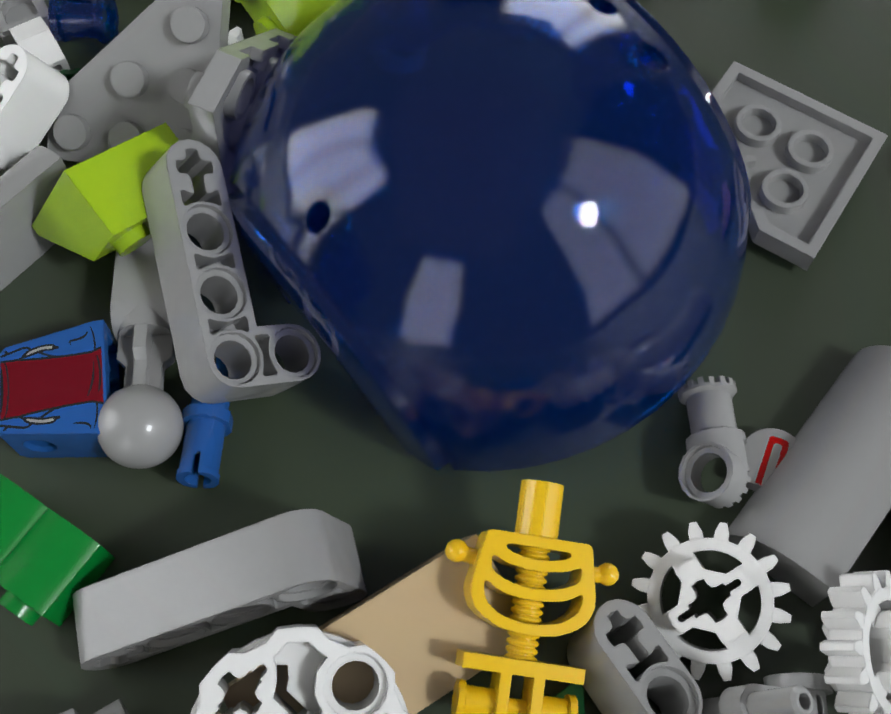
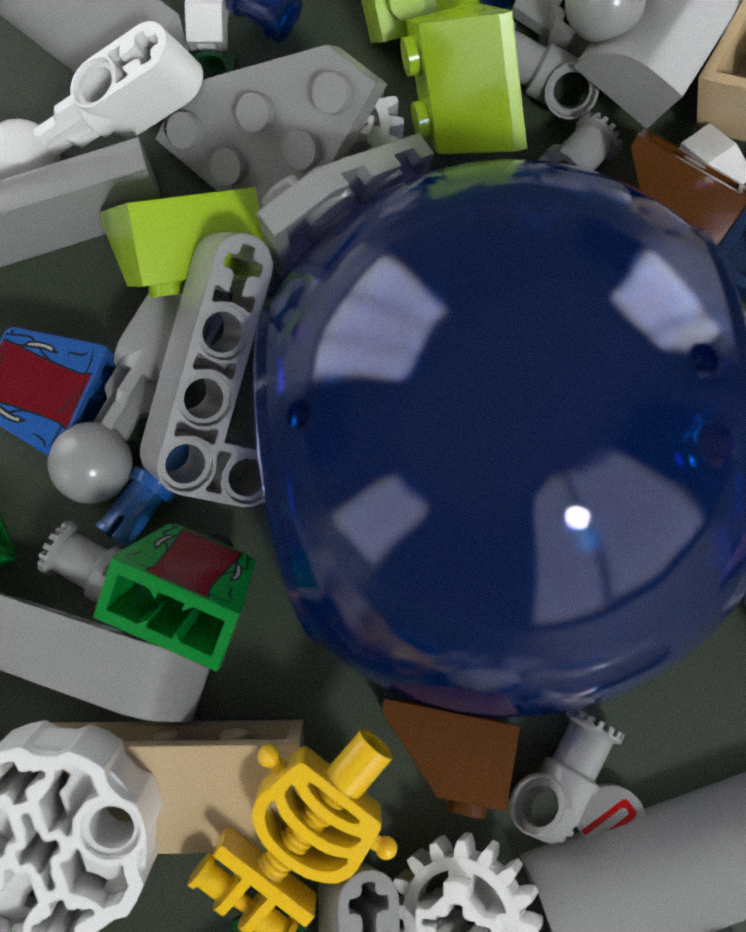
camera: 30 degrees right, 15 degrees up
(194, 515) = (76, 559): none -> light grey connector
(292, 466) = (178, 592): none -> green torso
(613, 475) = (458, 754): none -> reddish brown slope

